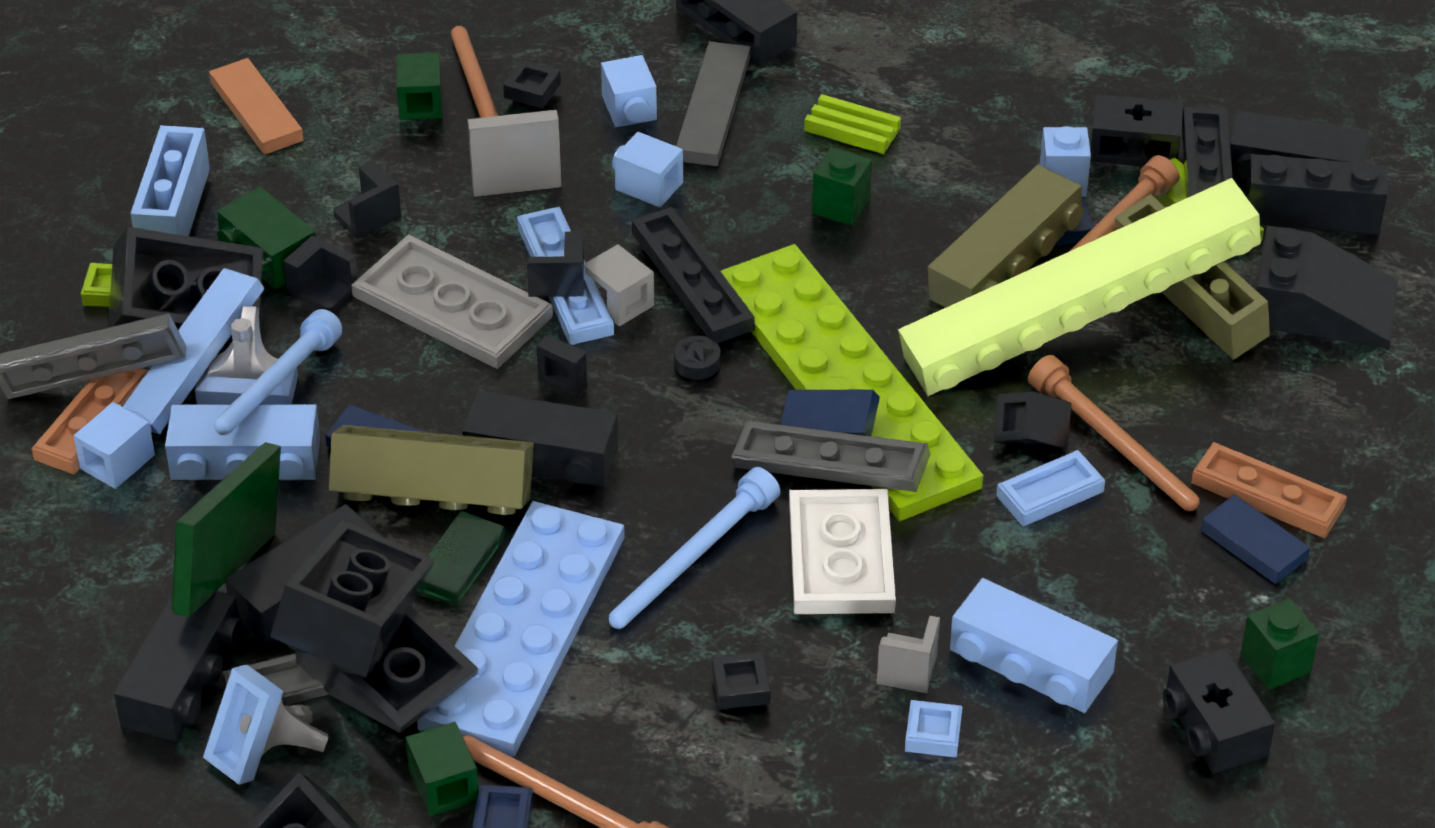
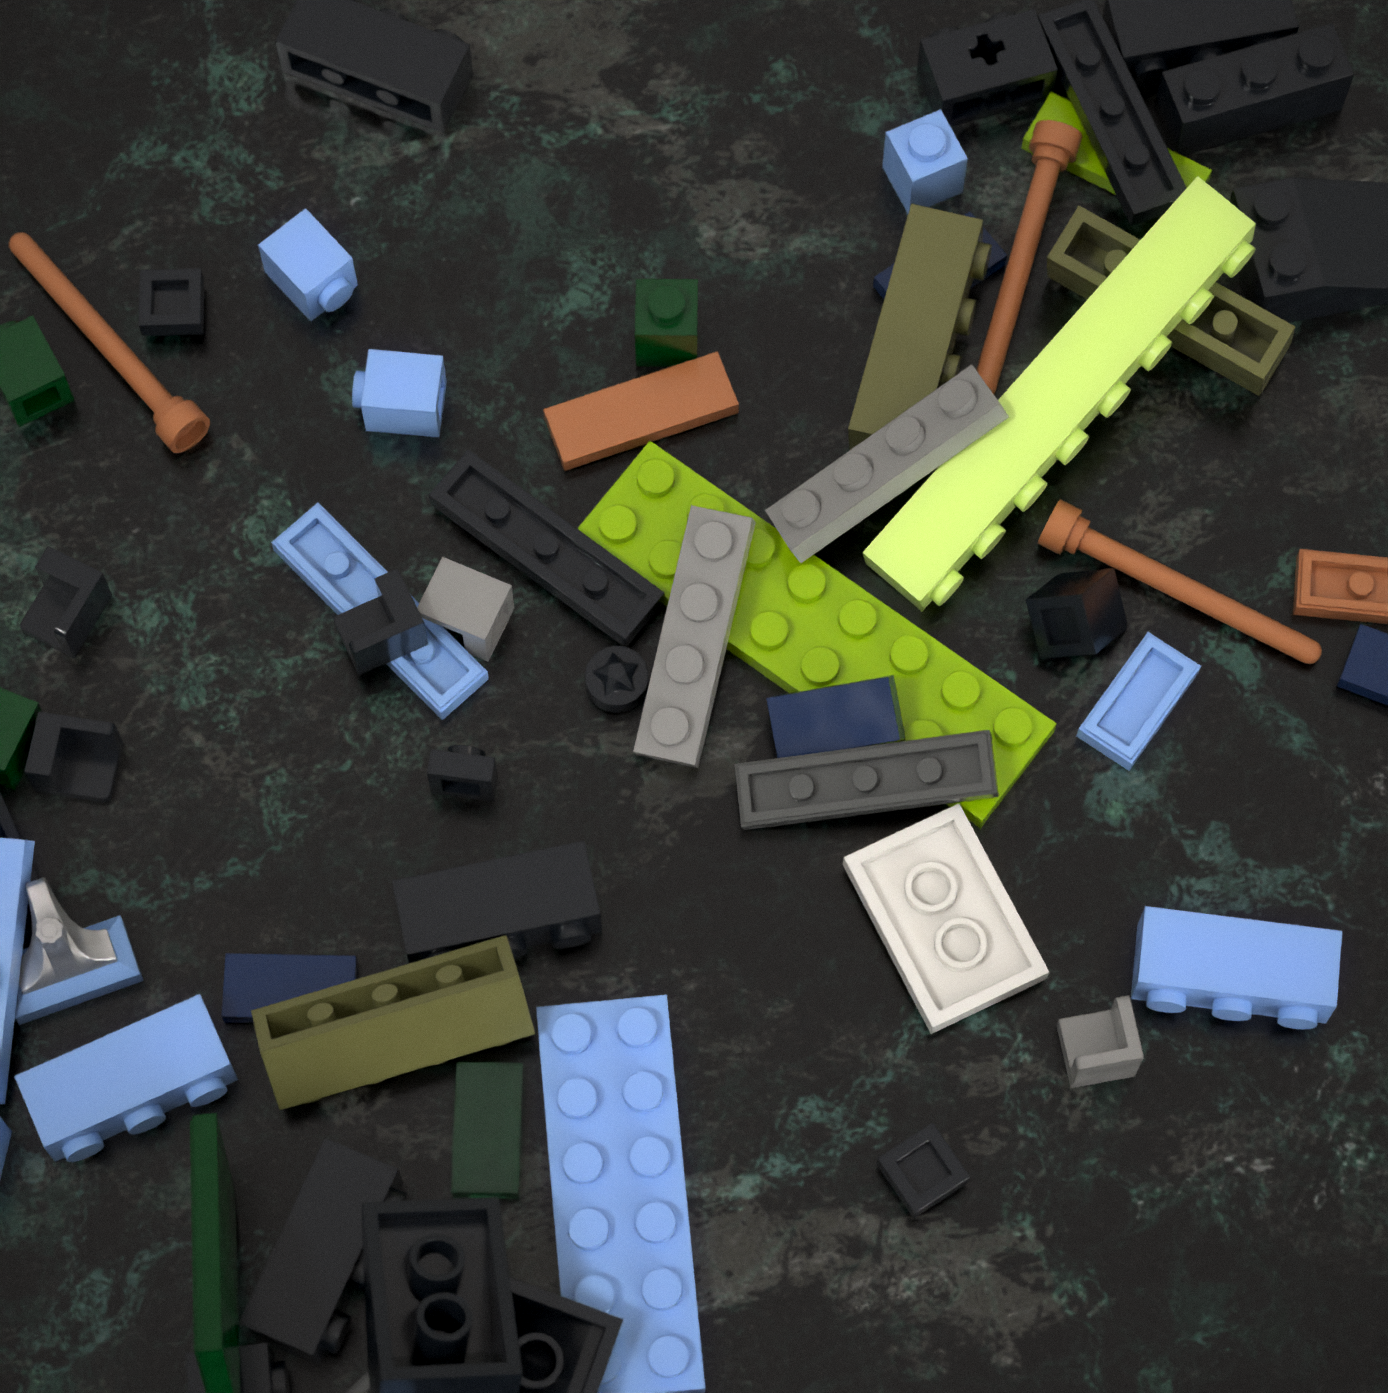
camera: 25 degrees left, 25 degrees up
(317, 333) = (122, 854): light blue piece -> none
(452, 301) = (258, 716): light grey tile -> none
(515, 153) = (228, 453): light grey tile -> none
(713, 103) = (422, 232): dark grey tile -> none
(754, 492) = (797, 871): light blue piece -> none
(759, 344) = (694, 636): none -> light grey plate
(807, 229) = (641, 411): none -> nougat tile
(852, 124) = (618, 185): lime tile -> none
(933, 728) = (1171, 1131): light blue tile -> none
(953, 280) = (886, 463): none -> light grey plate

